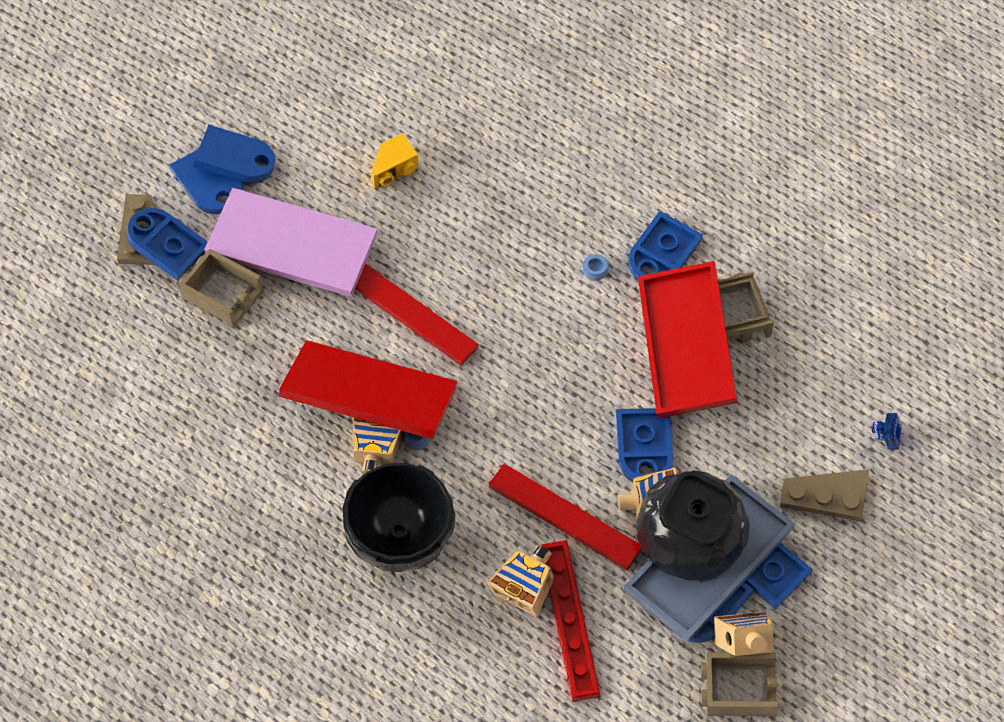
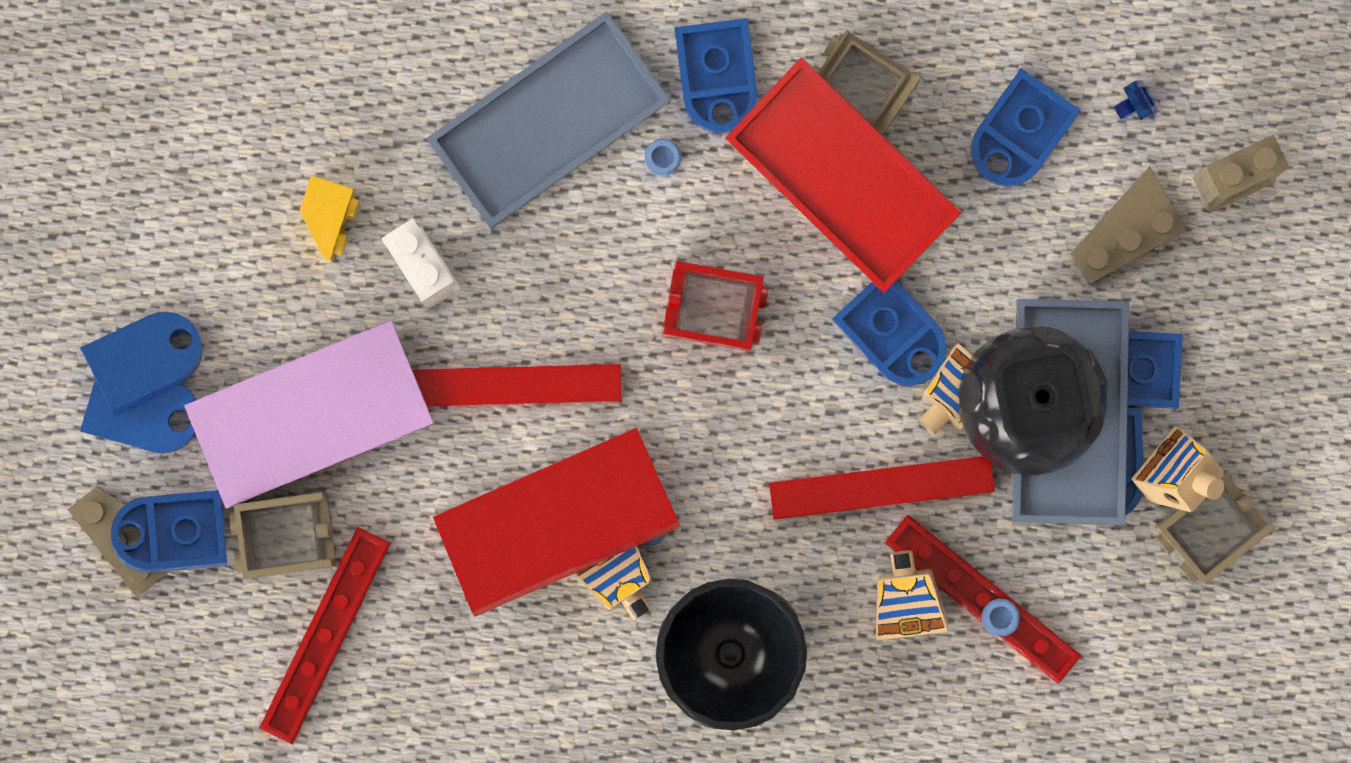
camera: 40 degrees left, 25 degrees up
(192, 354) = (325, 635): none -> red tile
(417, 210) = (421, 263): none -> white window
(551, 206) = (548, 120): none -> sand blue tile
(556, 353) = (714, 306): none -> window
(570, 632) = (1000, 617): none -> medium blue tile
(810, 399) = (1022, 128): none -> blue tile
(919, 502) = (1241, 173): none -> dark tan window

